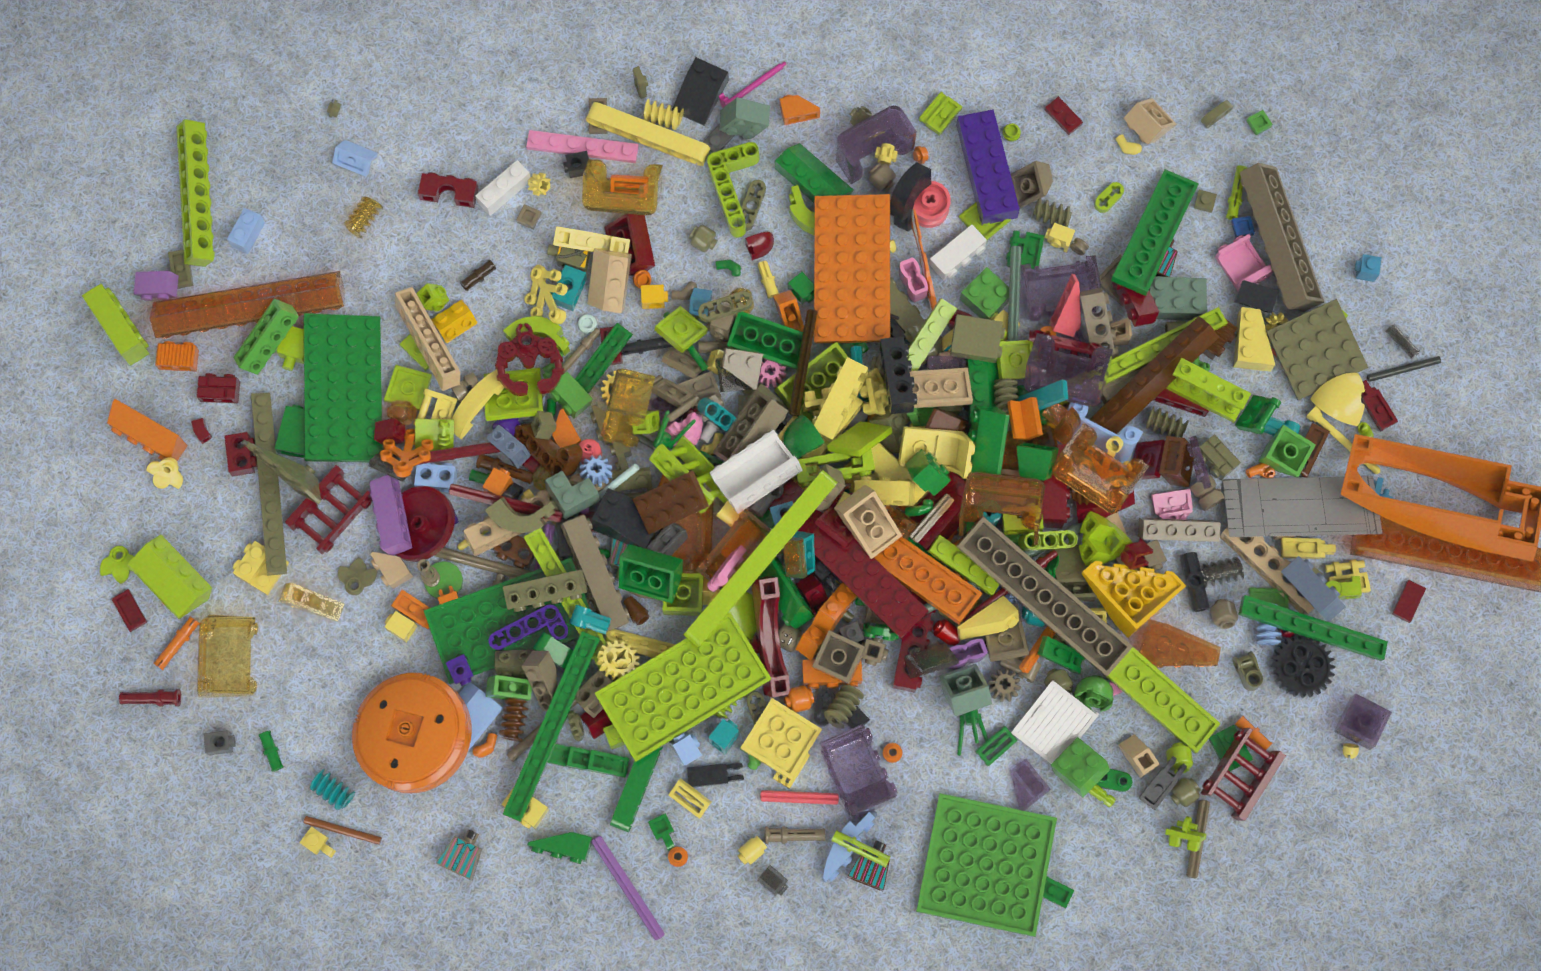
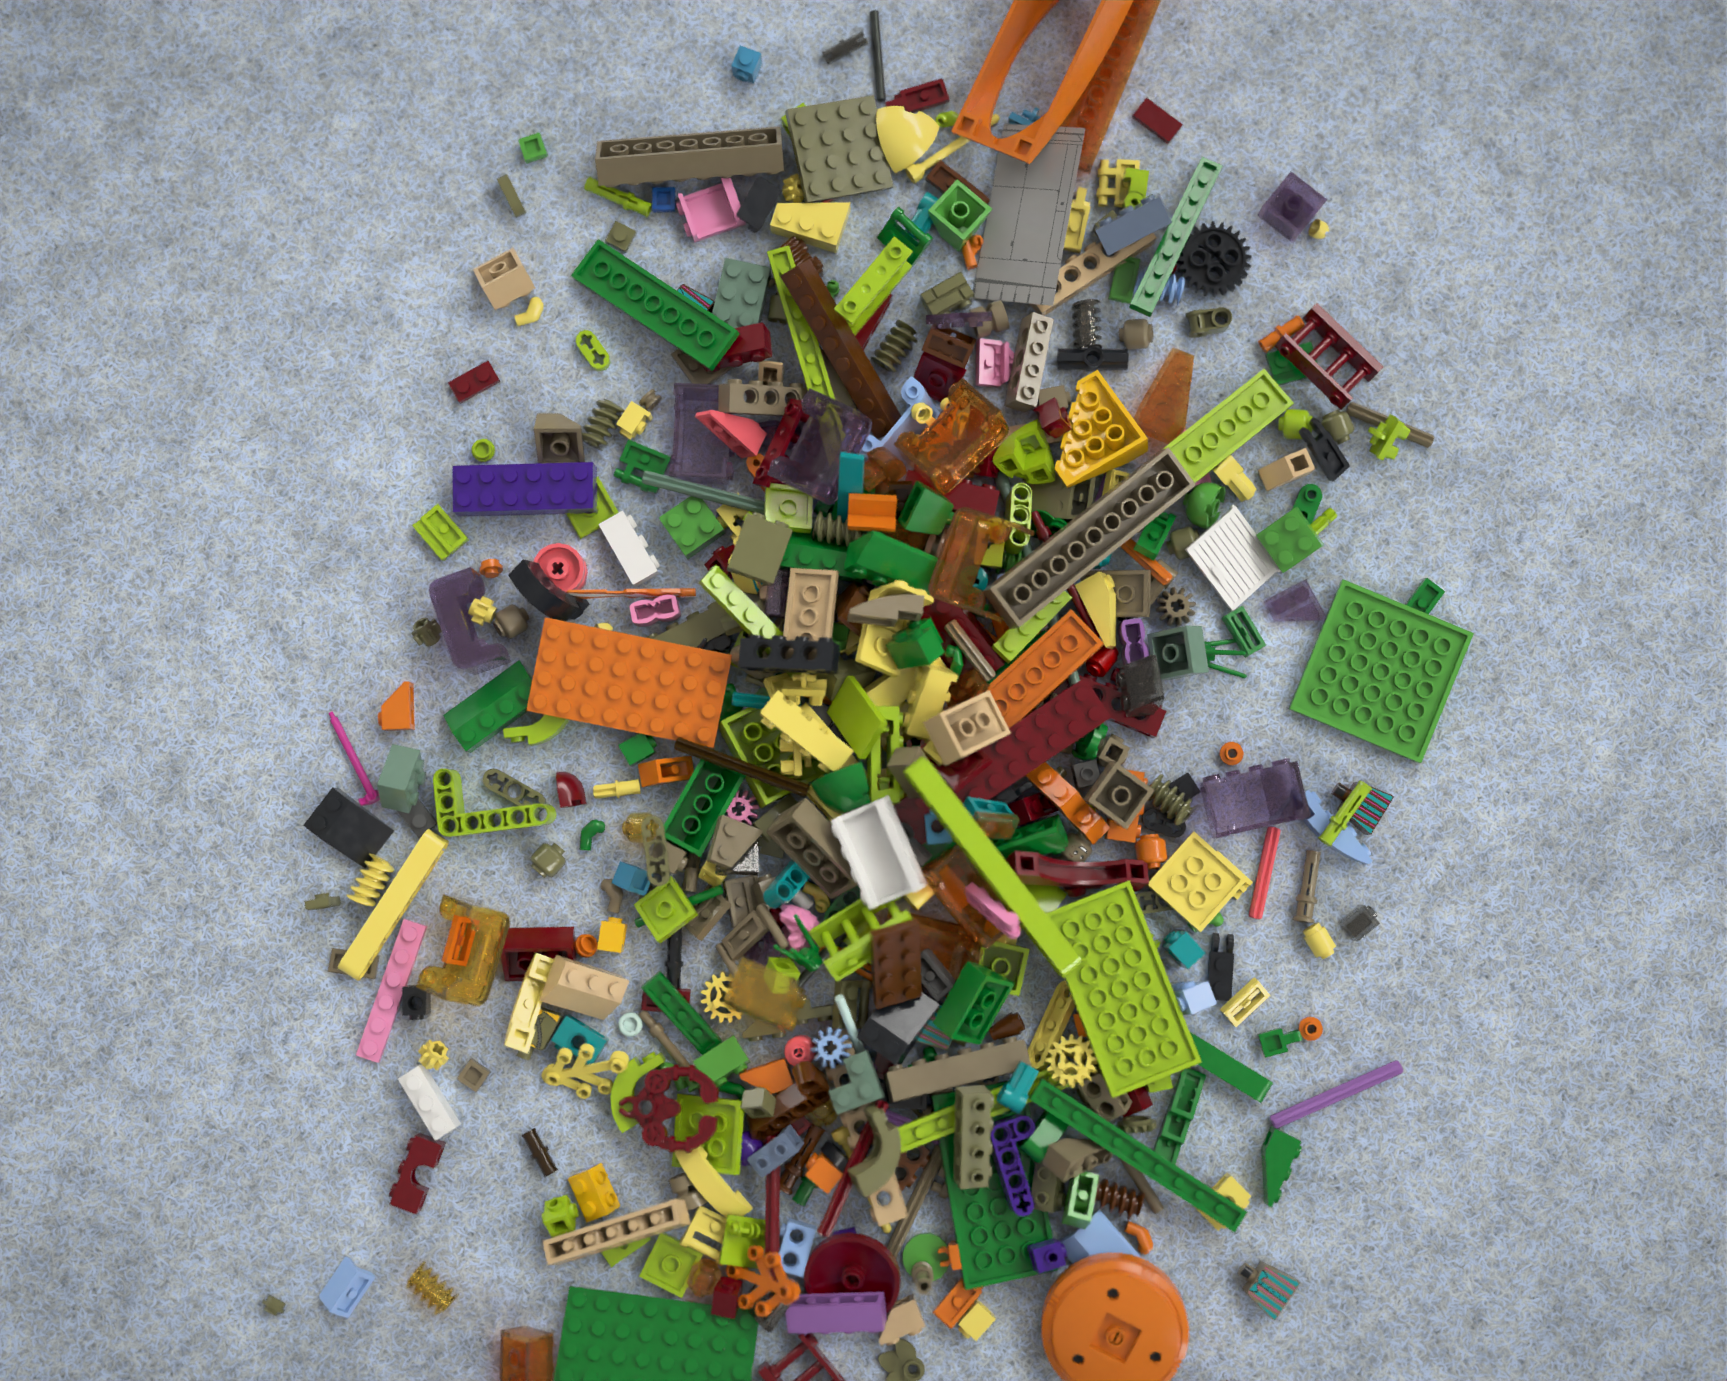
camera: 80 degrees left, 10 degrees up
(949, 442) = (887, 610): none -> dark tan slope
(1123, 709) = (1232, 475): none -> light yellow piece

